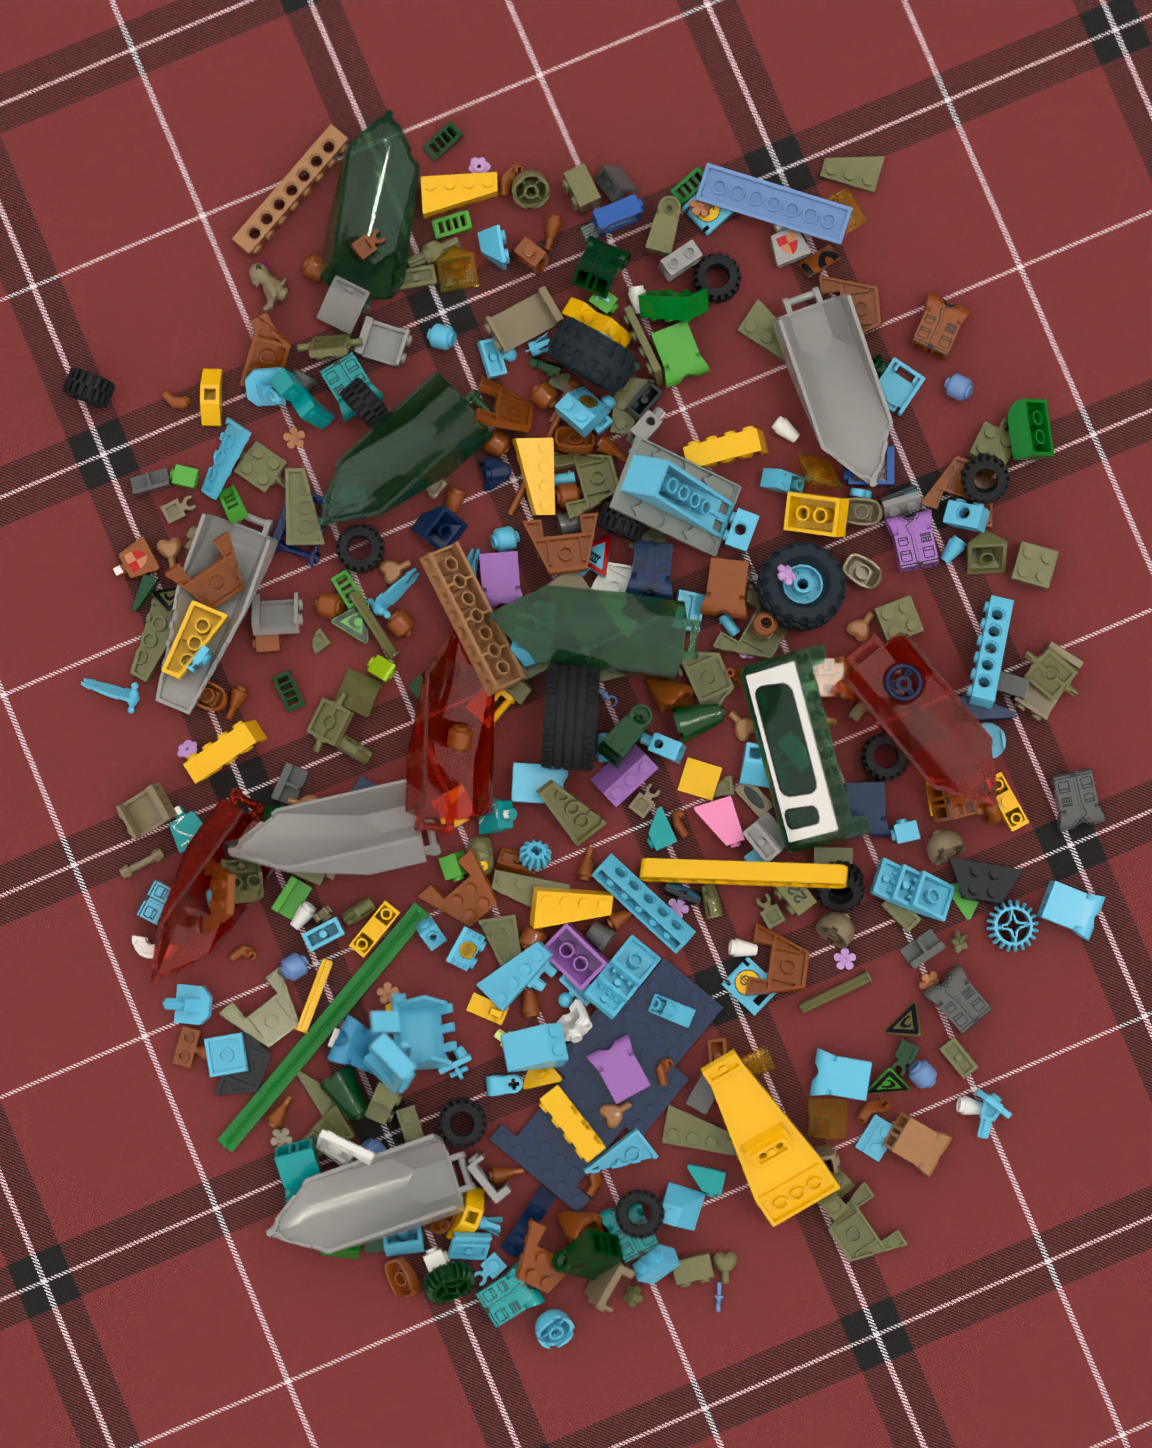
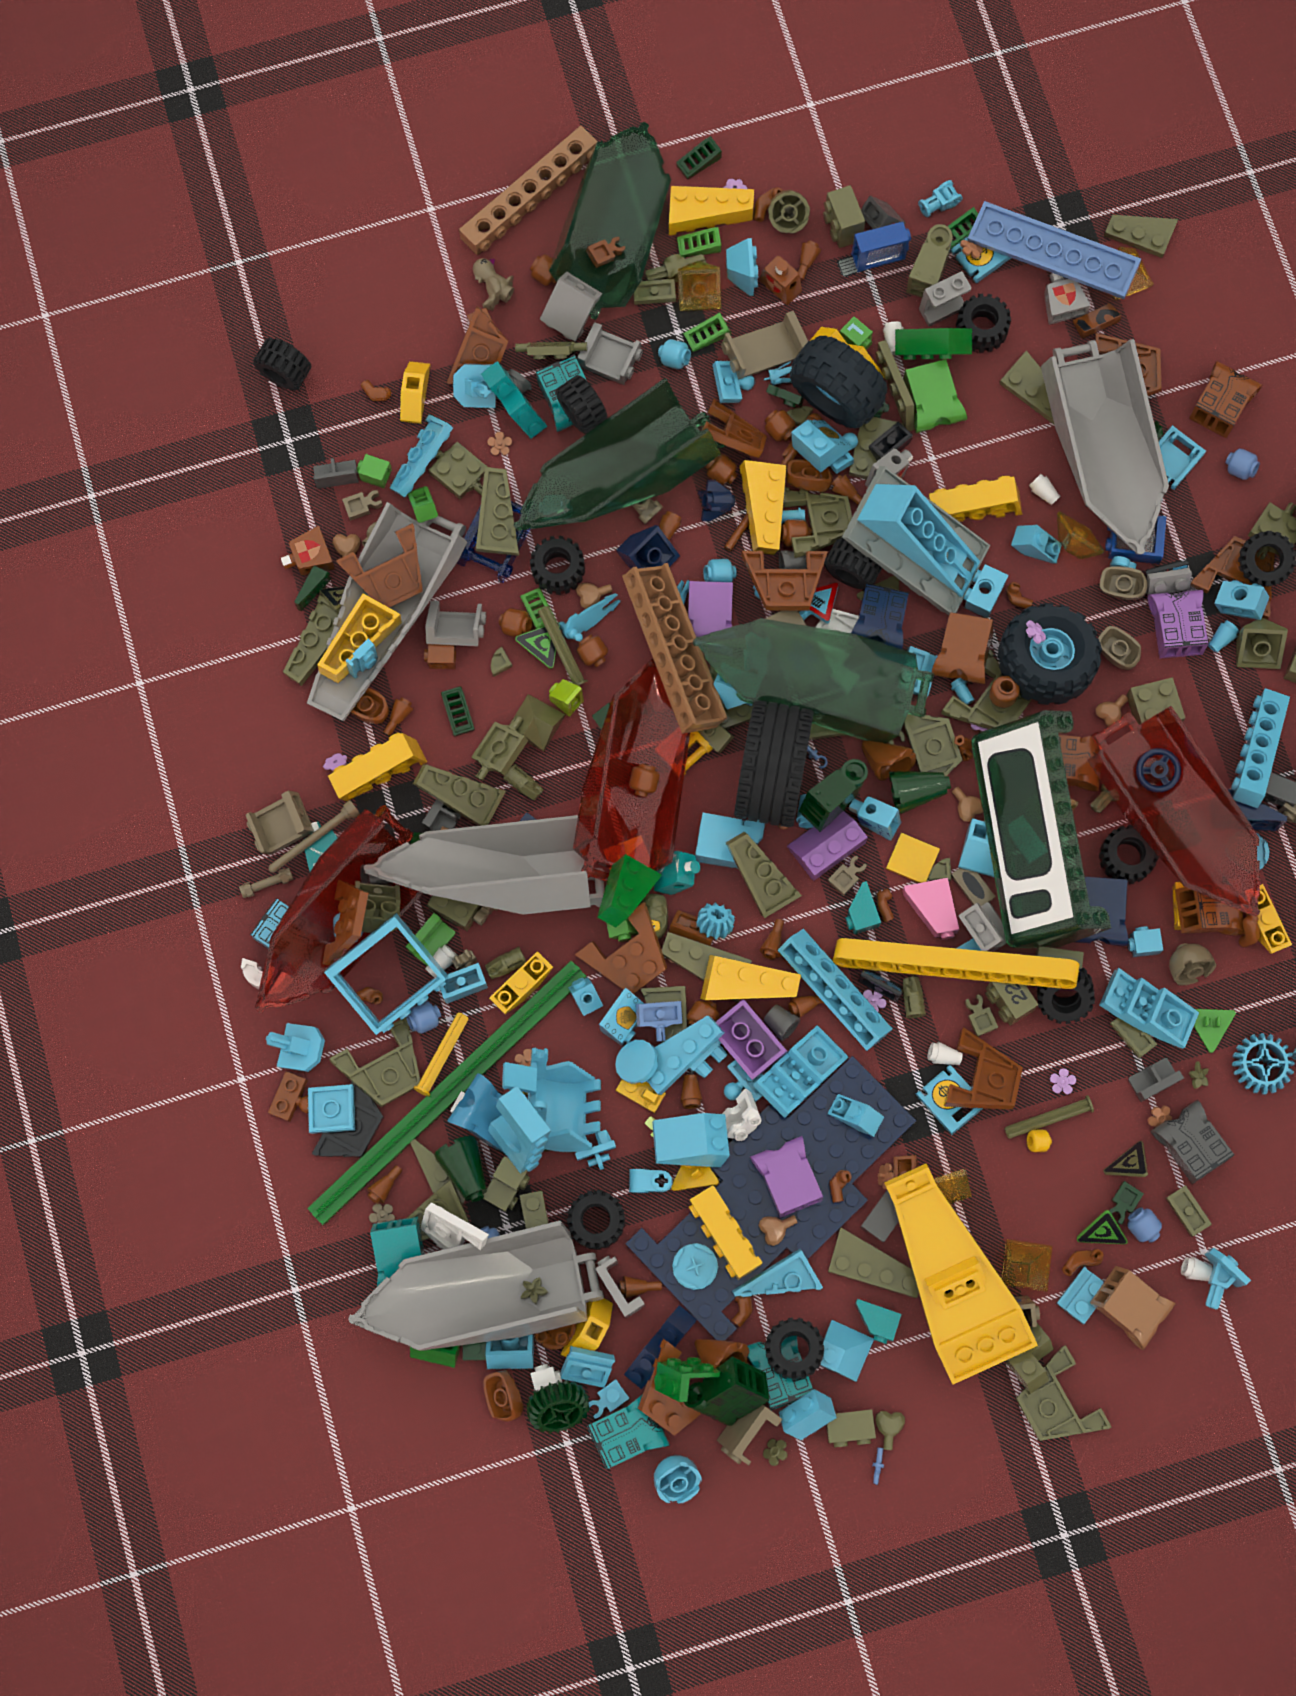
camera: 10 degrees right, 10 degrees down
(115, 692) = (280, 696): medium azure piece -> none
(205, 796) = (347, 812): none -> dark tan piece
(240, 913) = (403, 1009): none -> medium azure window
(305, 769) = (466, 797): none -> olive wing
(417, 1188) = (533, 1290): none -> olive plant
(455, 840) = (625, 889): none -> green wedge
(479, 297) = (711, 322): none -> bright green slope
(481, 985) = (636, 1061): none -> medium azure tile
(486, 1224) = (615, 1344): medium azure piece -> none
(496, 945) = (659, 1016): none -> medium blue plate
(542, 1248) = (674, 1376): none -> green bracket
(550, 1152) = (695, 1266): none -> medium azure tile
(599, 267) = (856, 297): dark green piece -> none
(669, 158) = (942, 198): none -> medium azure connector
(702, 1058) = (885, 1174): none -> nougat plant
(769, 533) = (1015, 597): none -> dark orange arm
(816, 514) = (1072, 579): yellow brick -> none
(828, 1012) = (1038, 1140): none -> yellow piece
(836, 927) = (1057, 1043): dark tan cylinder -> none
(840, 1076) = (1047, 1216): medium azure piece -> none
(983, 881) = (1232, 1007): black wing -> none

